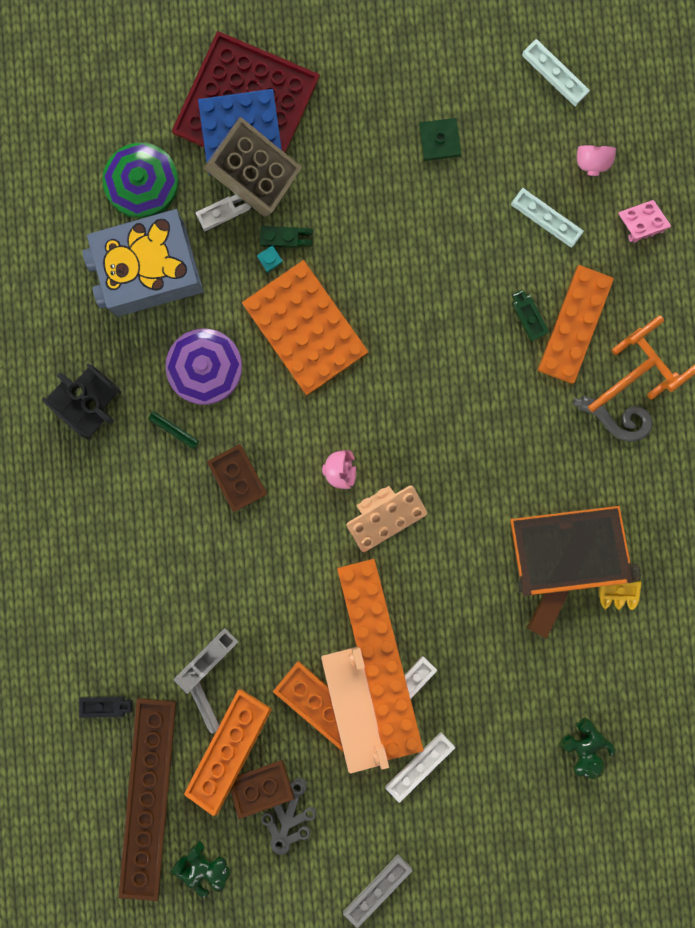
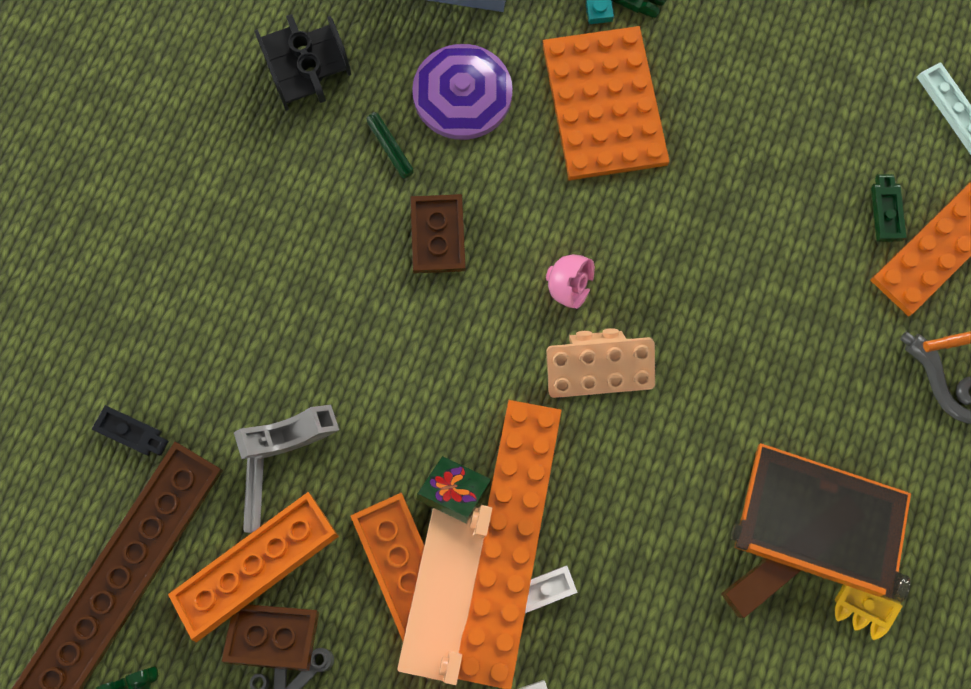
camera: 20 degrees right, 10 degrees down
(330, 644) = (453, 489): none -> dark green tile

